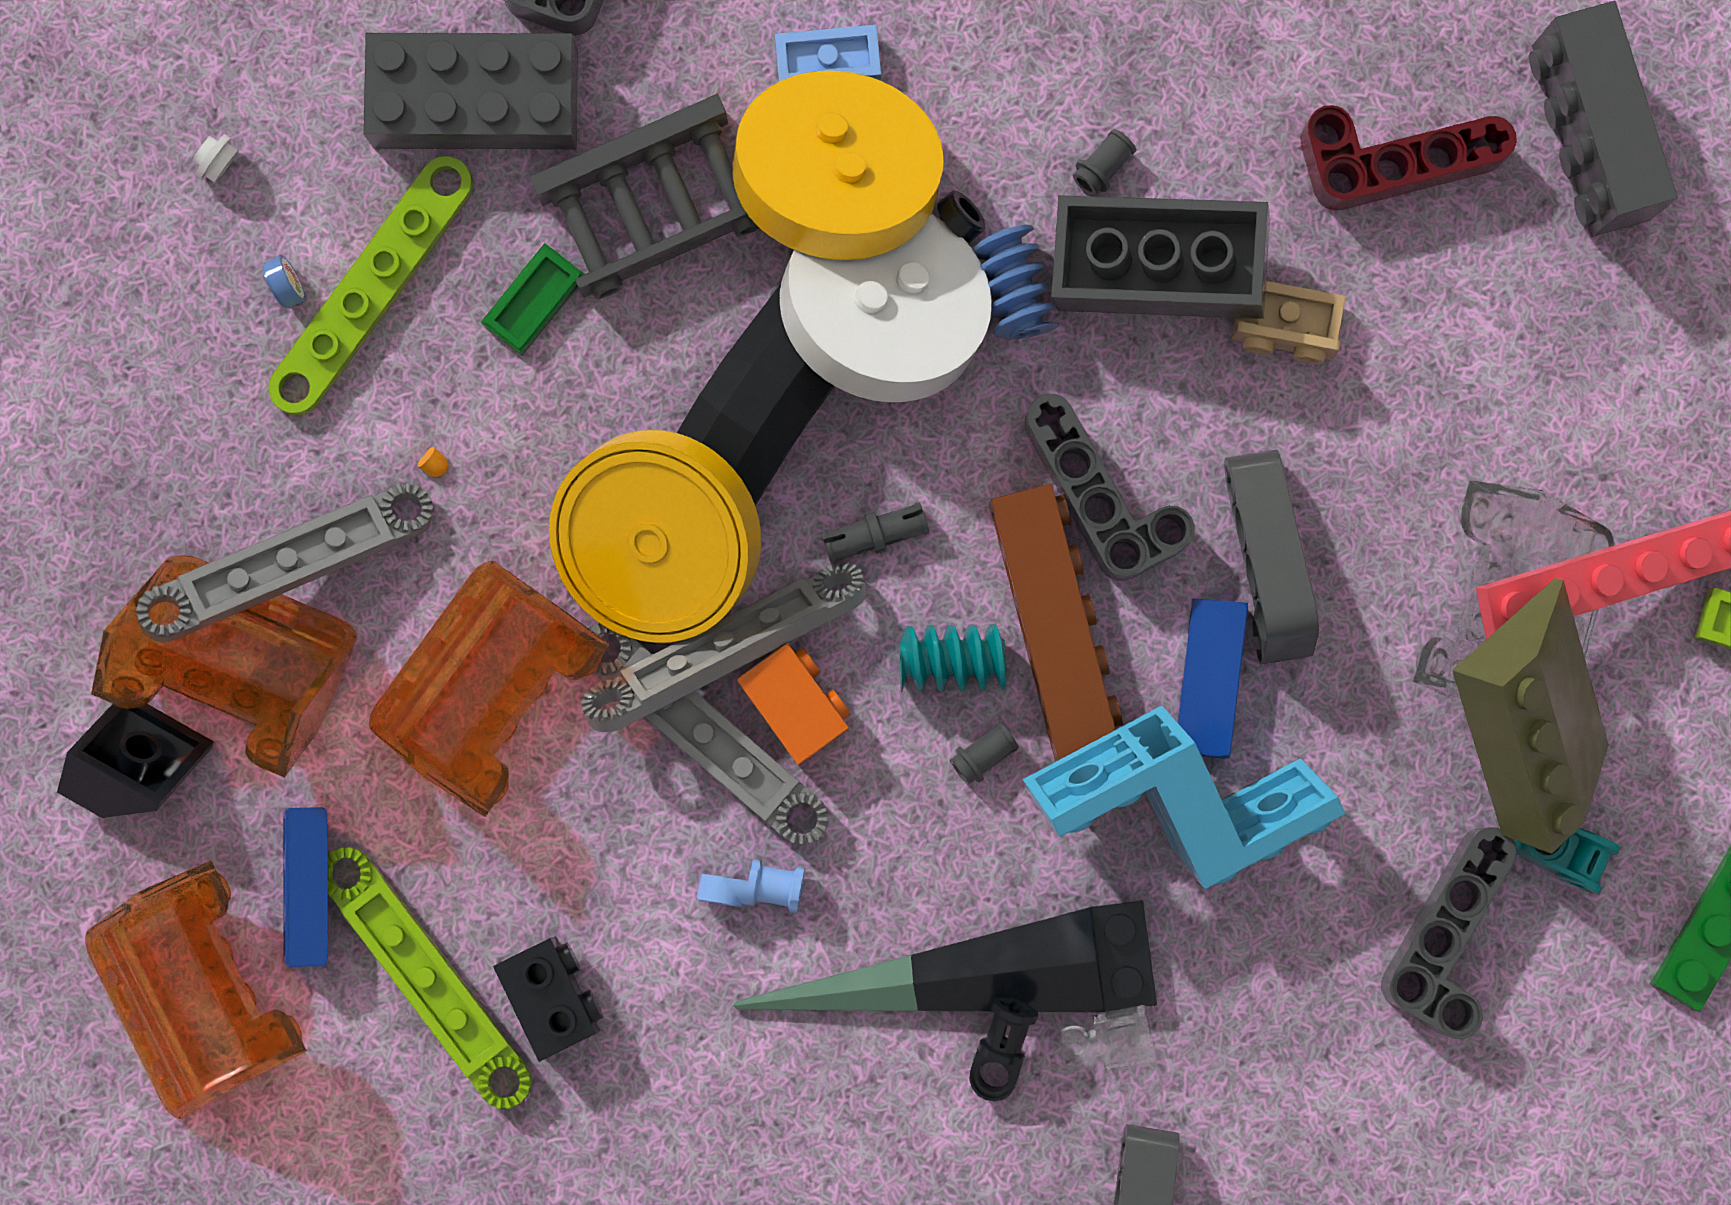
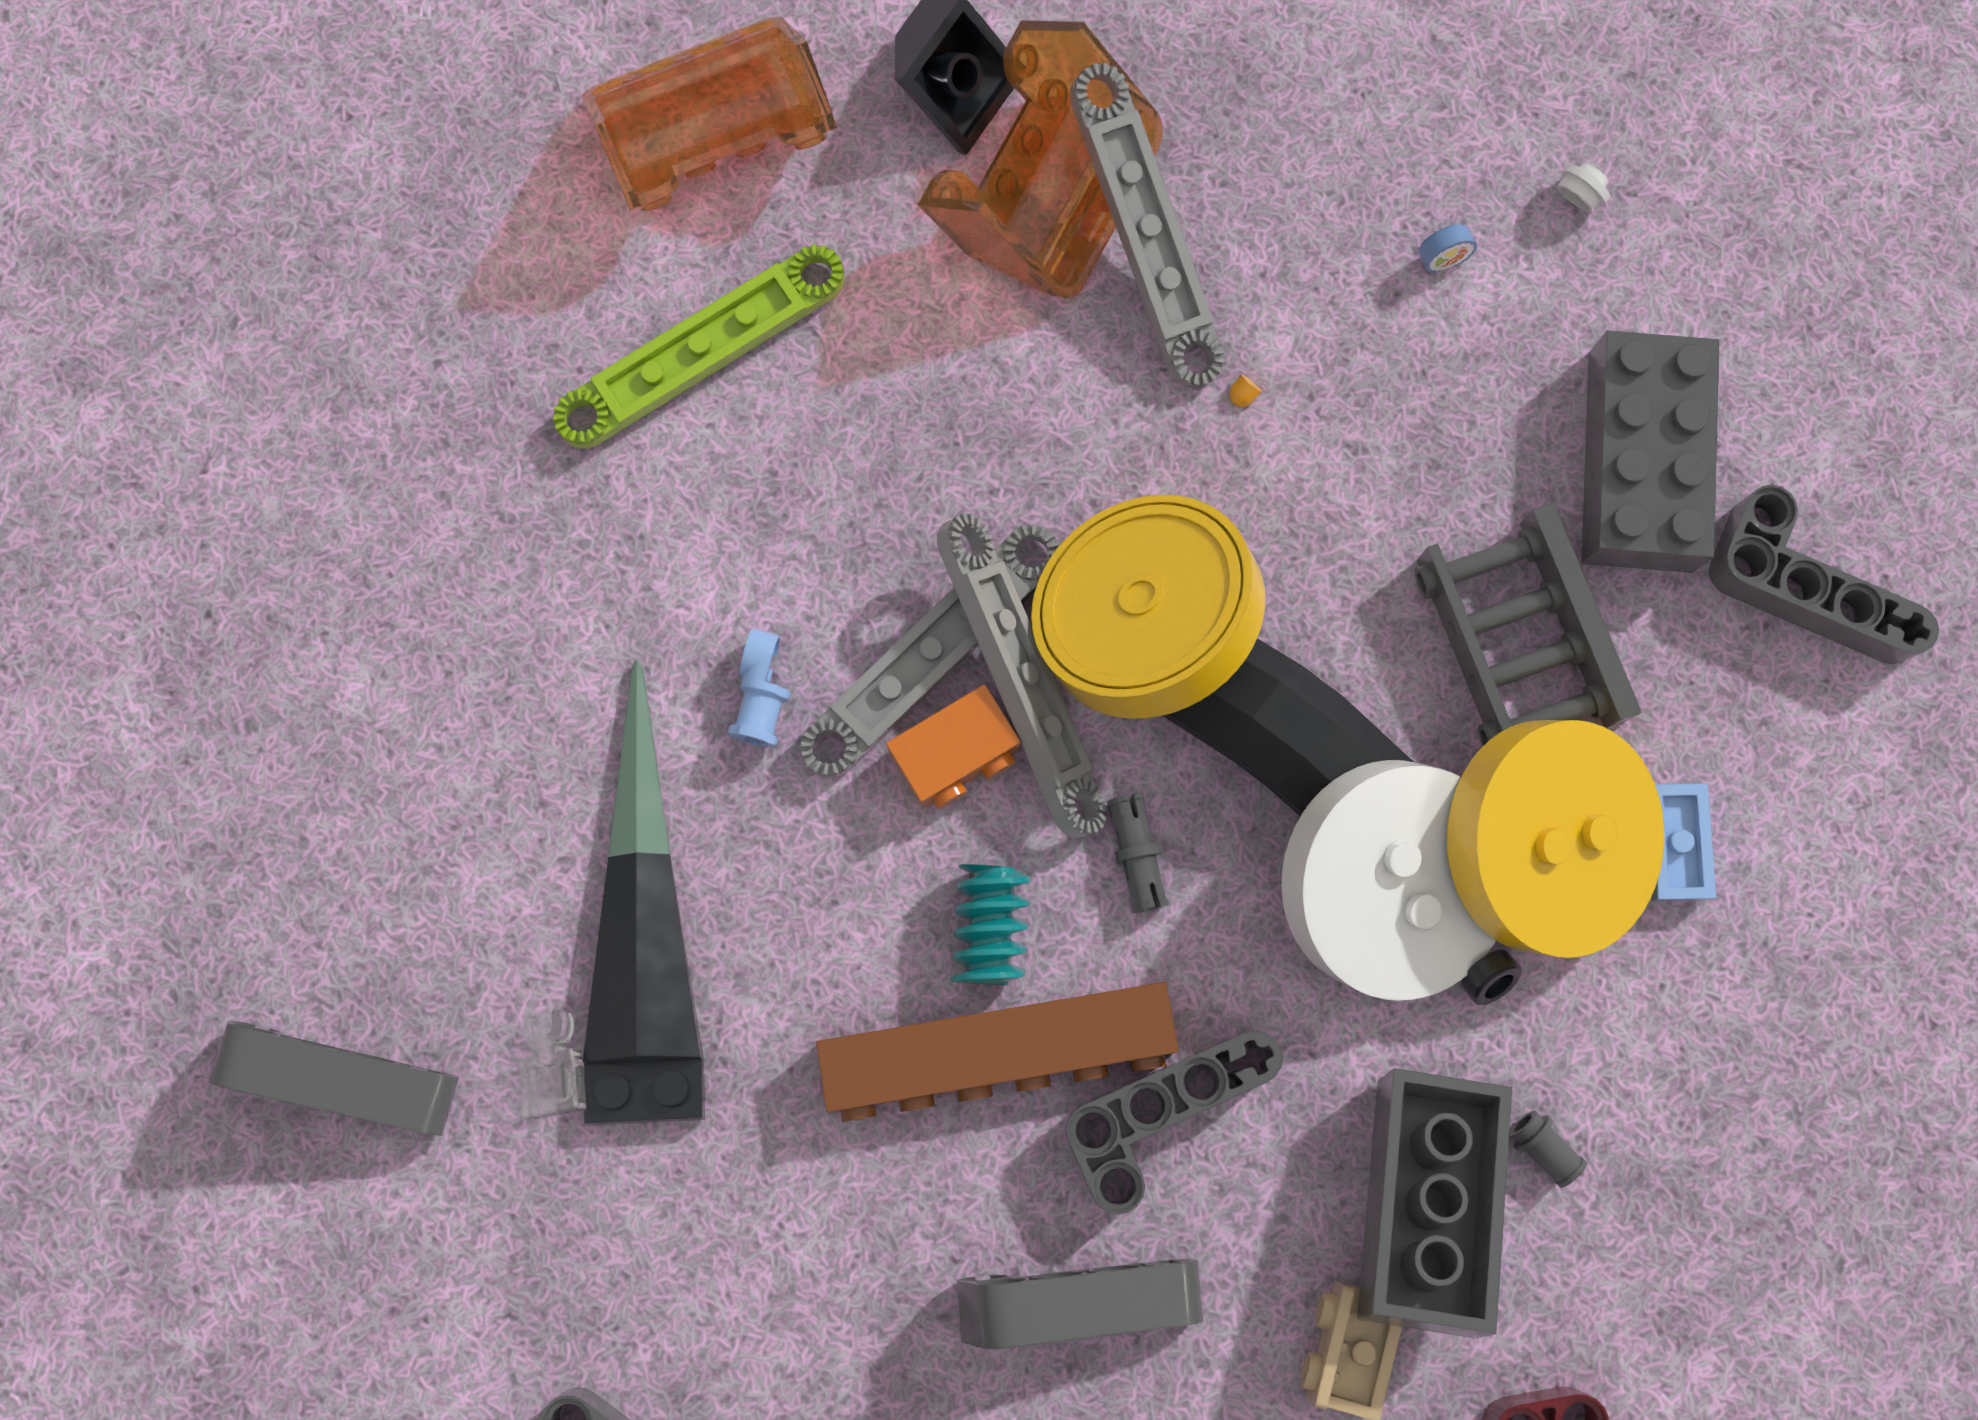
camera: 95 degrees right, 5 degrees down
(305, 887) = (804, 227): blue slope -> none
(371, 285) = (1440, 339): lime plate -> none
(477, 680) = (1002, 413): clear orange windscreen -> none
(532, 299) = (1416, 503): green tile -> none
(548, 997) = (663, 467): black brick -> none
(983, 754) = (882, 953): dark grey pin -> none
(1003, 1049) = (553, 945): black connector -> none
(1013, 284) = (1411, 1029): medium blue piece -> none
(1206, 832) = (763, 1200): medium azure bracket -> none
(1212, 674) = (946, 1220): blue slope -> none

